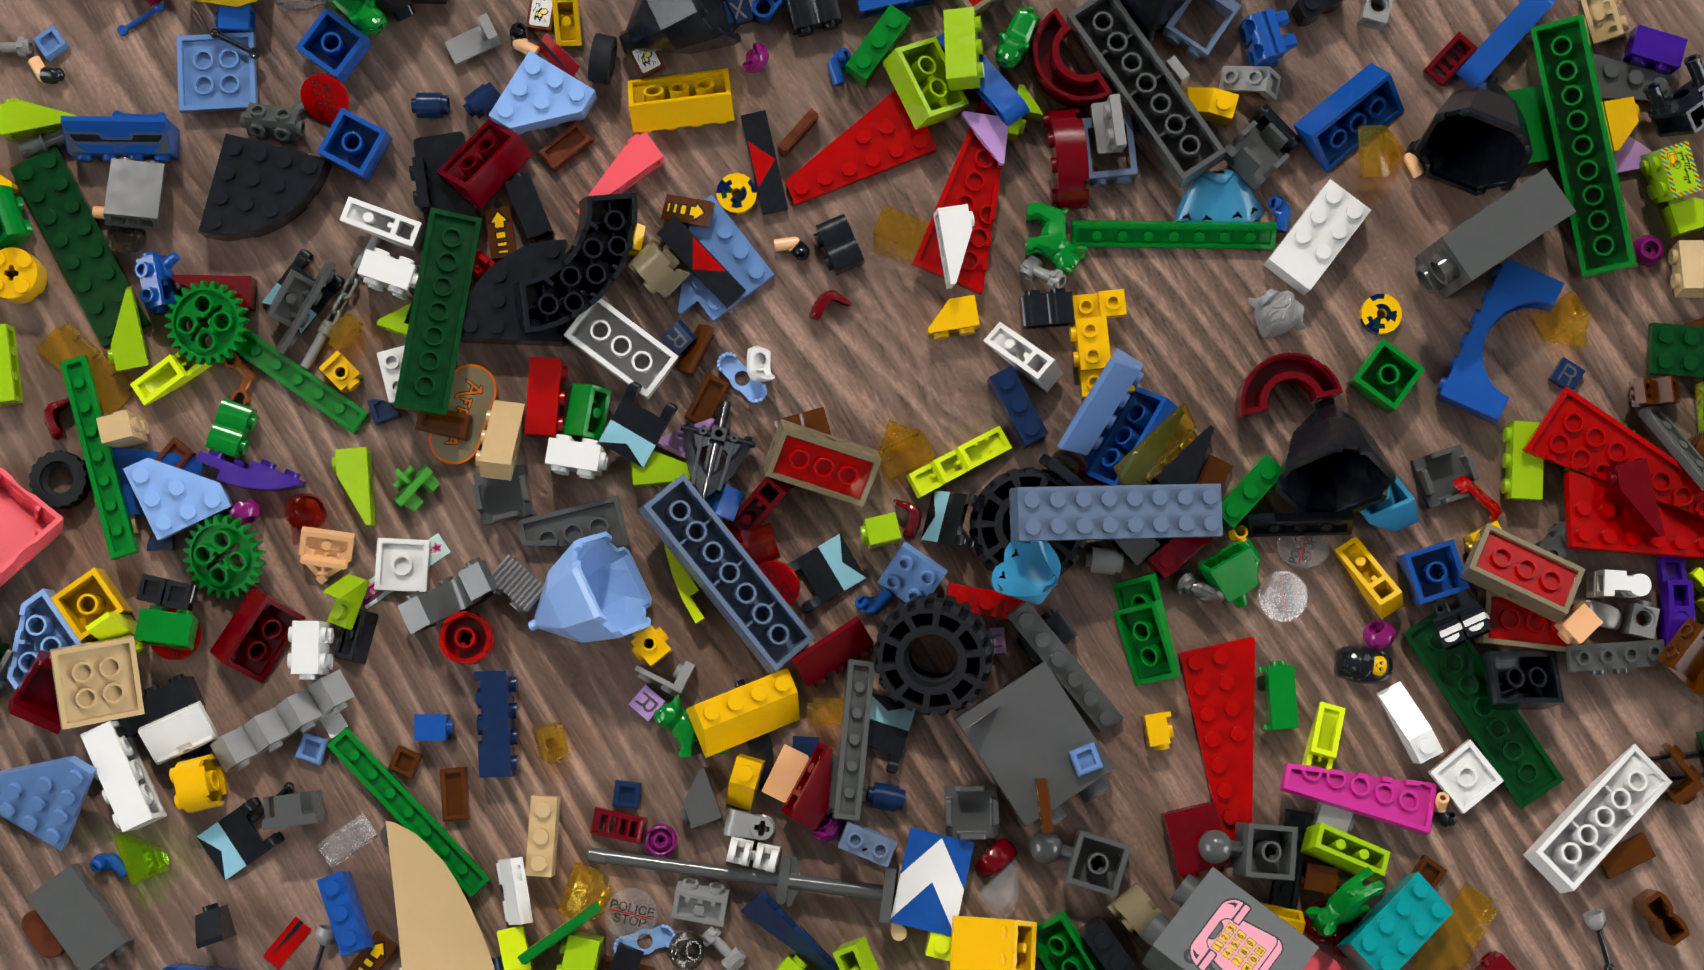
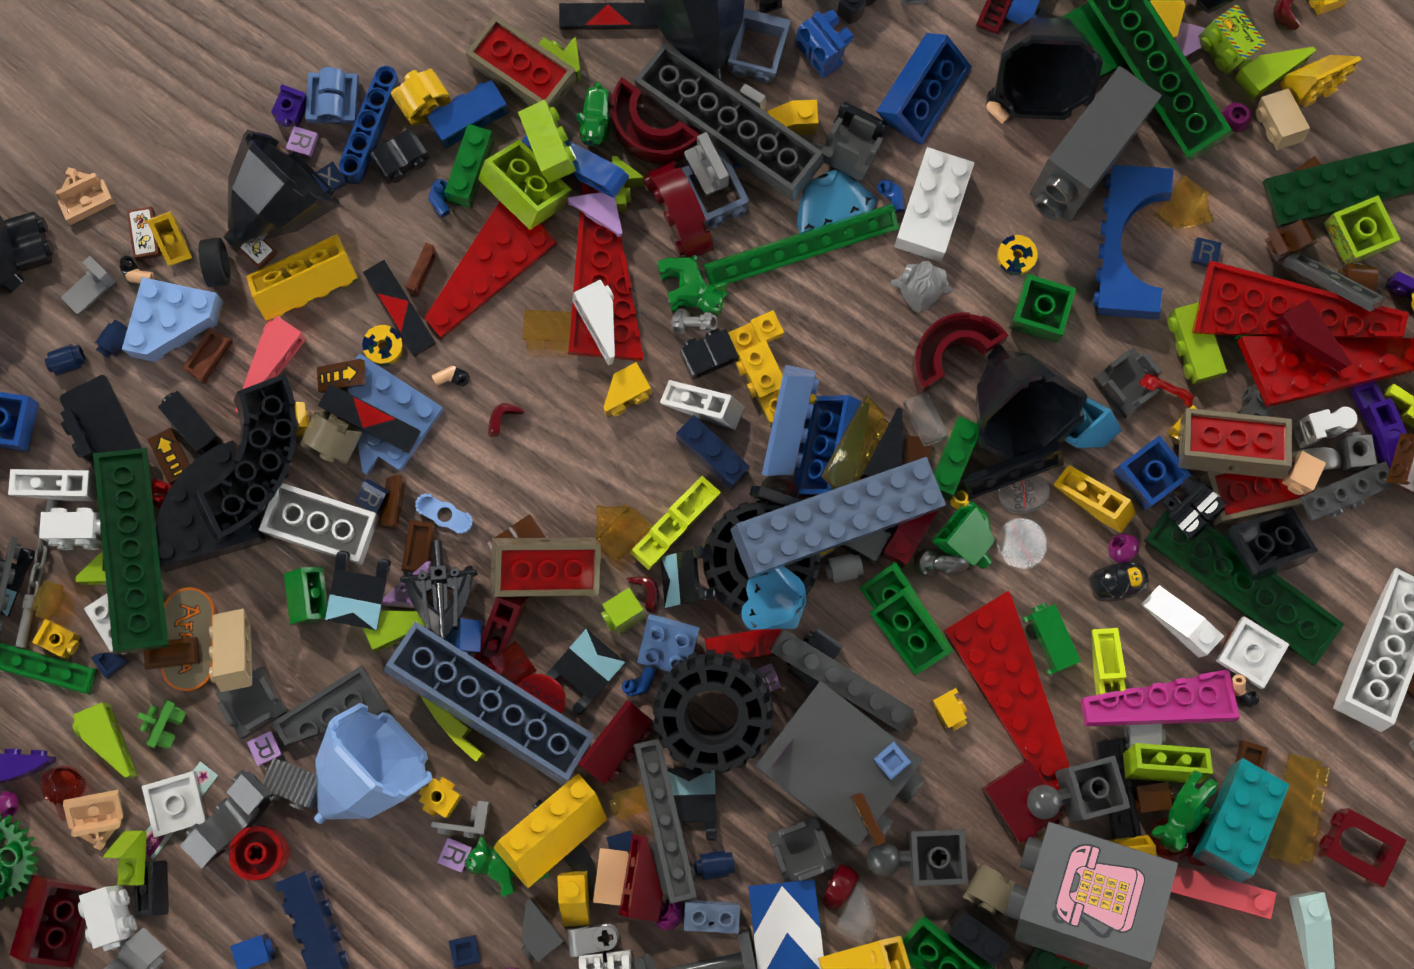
camera: 15 degrees left, 5 degrees down
(485, 163) = (134, 395): dark red slope -> none
(502, 542) = (265, 748): none -> lavender tile
(545, 397) = (262, 596): red brick -> none
(558, 56) = (172, 274): red sticker -> none
(558, 749) = (384, 928): clear yellow brick -> none
(583, 457) = (315, 640): white brick -> none
(756, 58) = (360, 215): magenta plate -> none
(759, 364) = (456, 495): white hair -> none
(838, 244) = (494, 359): black brick -> none
(1233, 445) = (925, 419): none -> clear tile
(1251, 79) = (823, 83): light grey bracket -> none
(1377, 151) = (961, 109): clear yellow slope -> none

